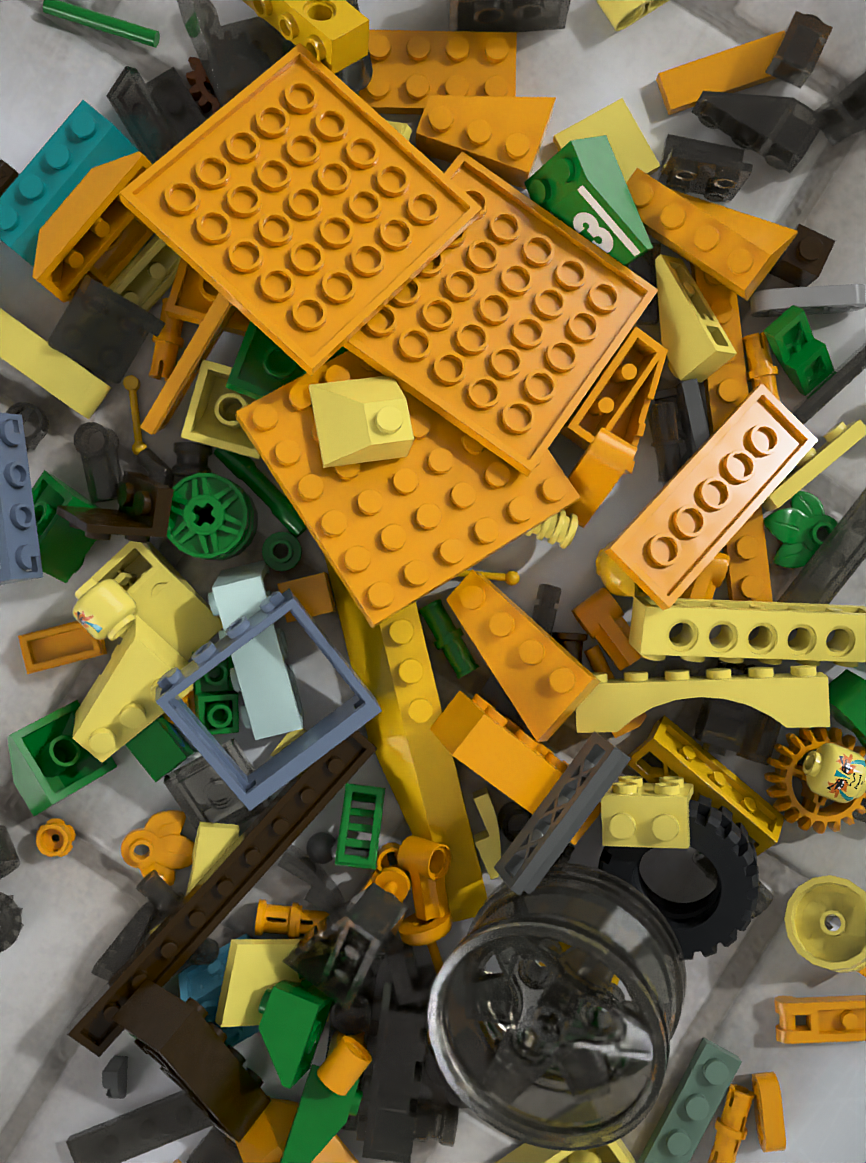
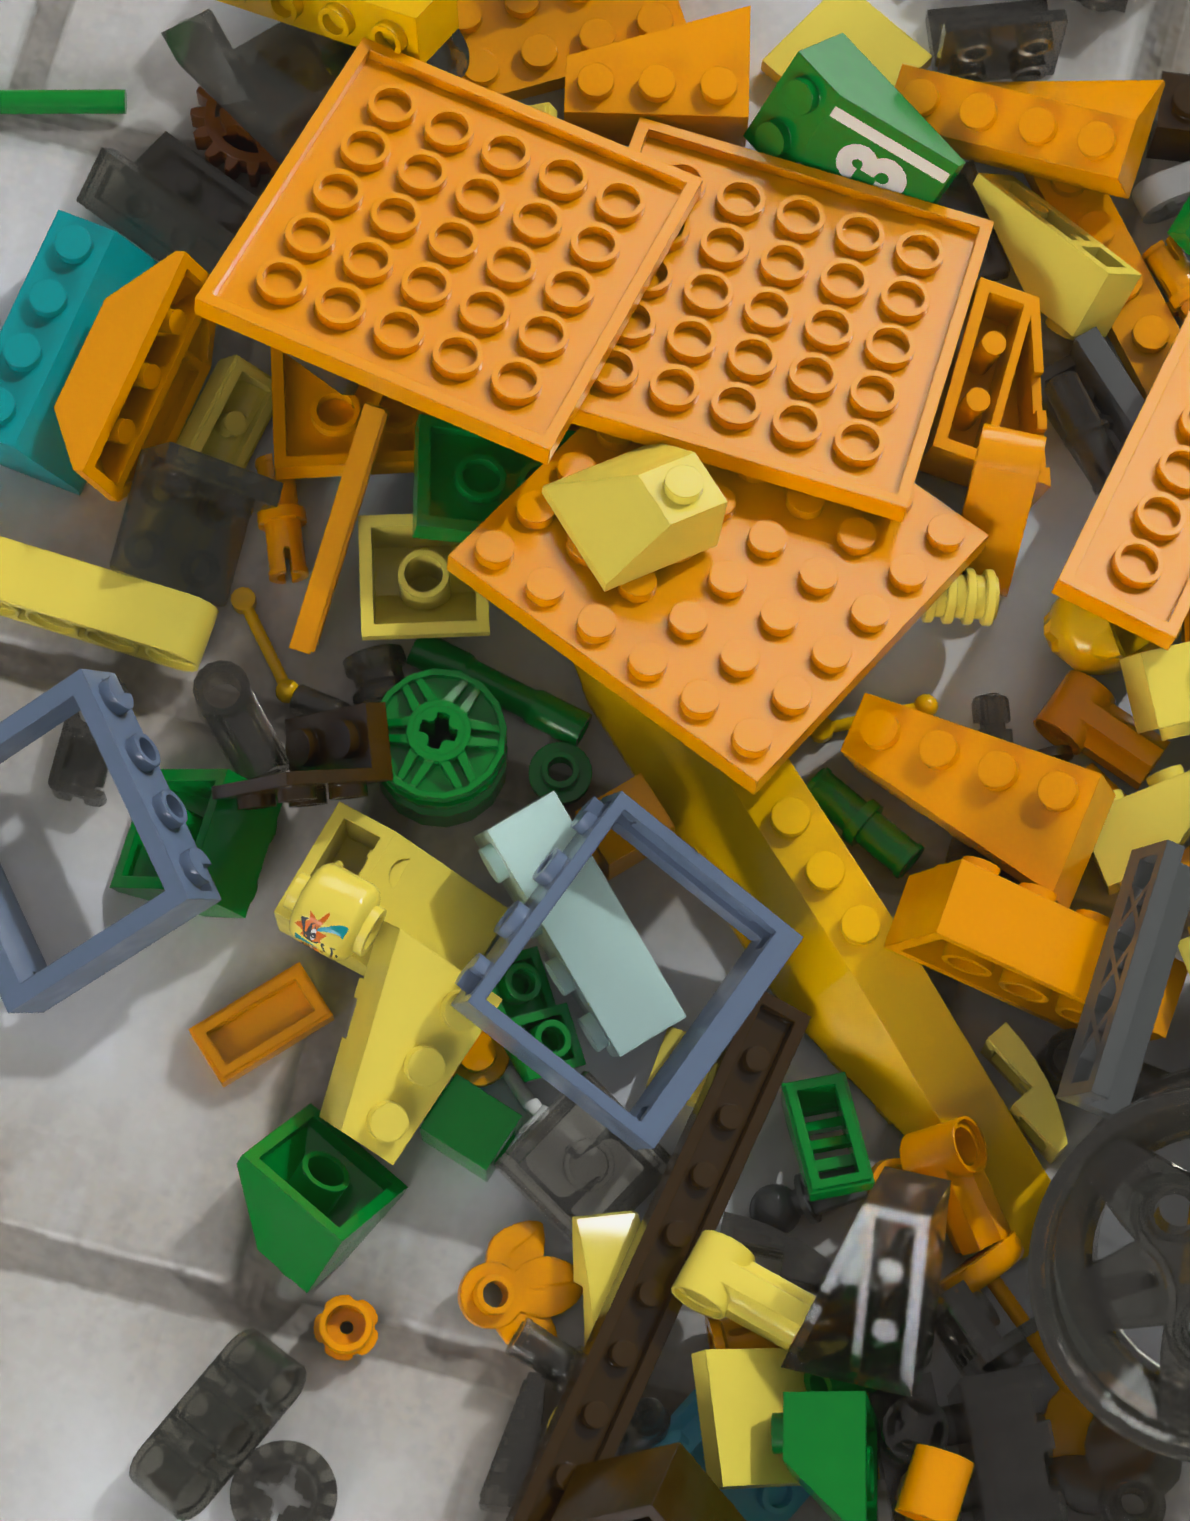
camera: 25 degrees left, 15 degrees down
(269, 899) = (726, 1282): none -> light yellow piece

